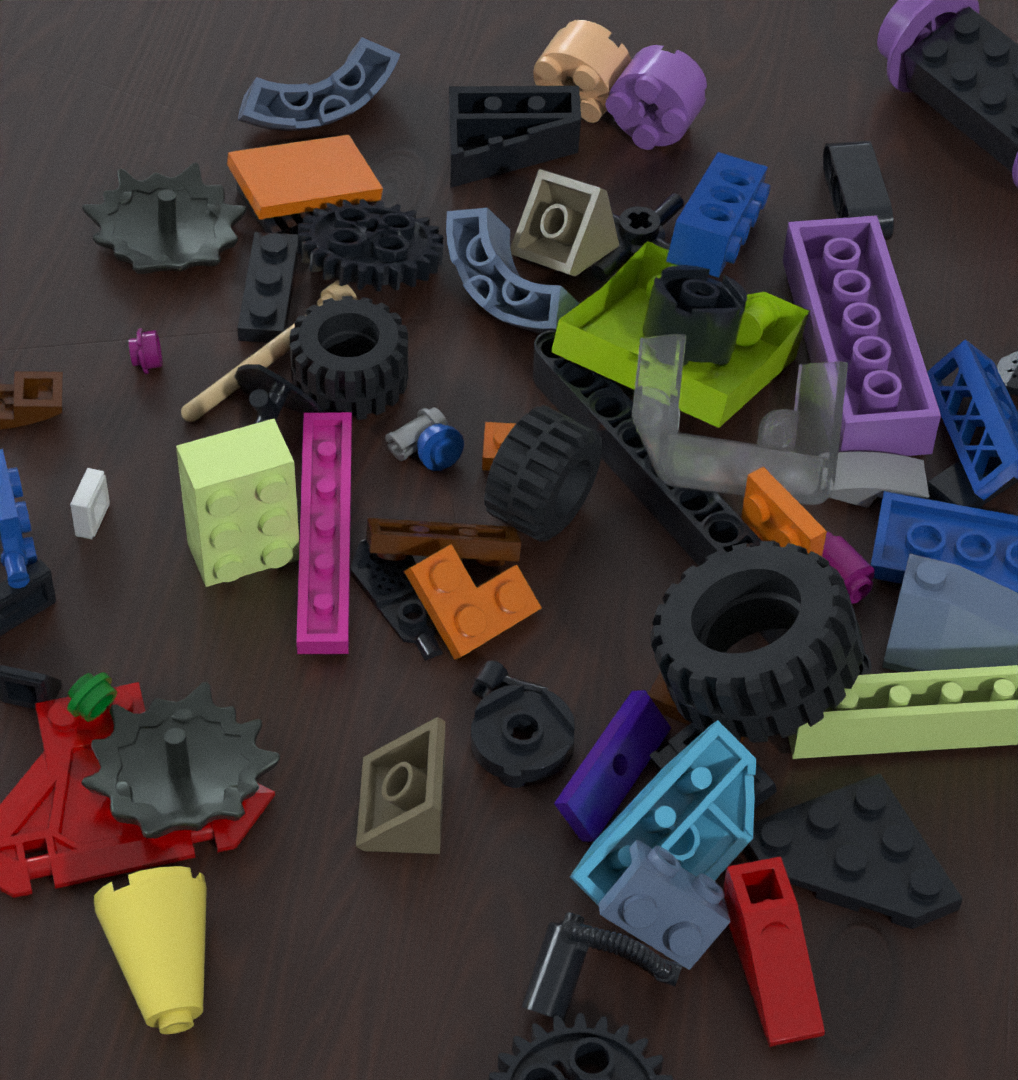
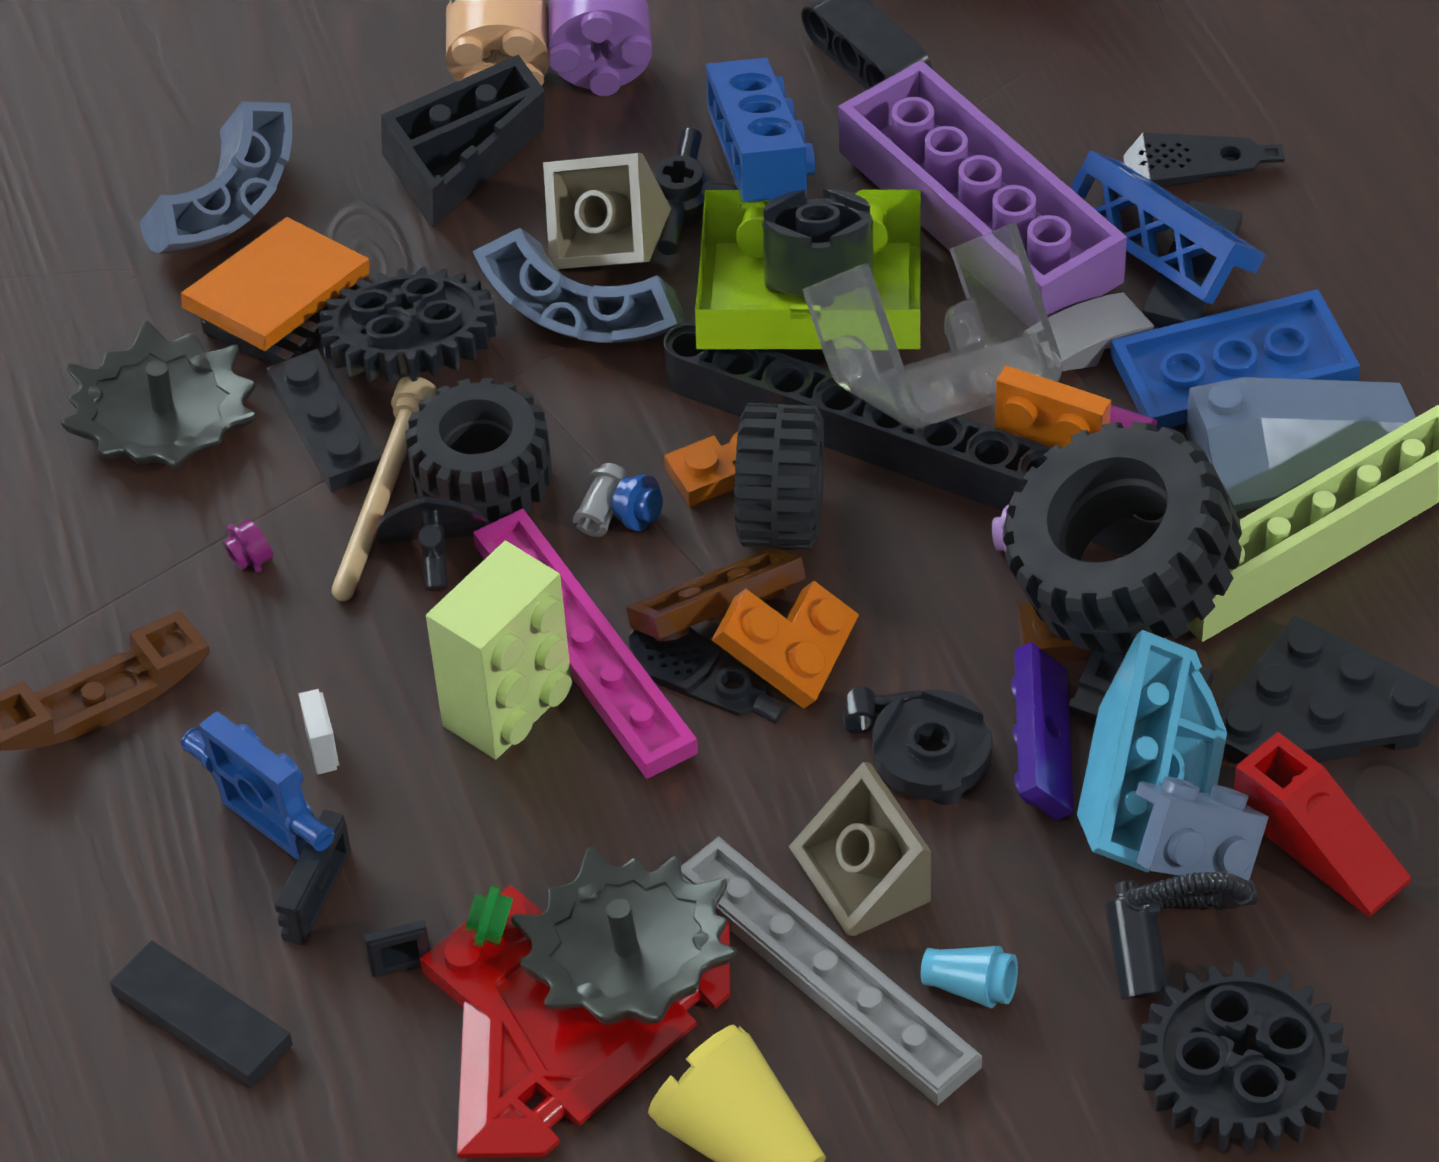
camera: 25 degrees left, 0 degrees up
(322, 871) = (835, 975): none -> light grey tile
(424, 928) = (974, 973): none -> medium azure cone

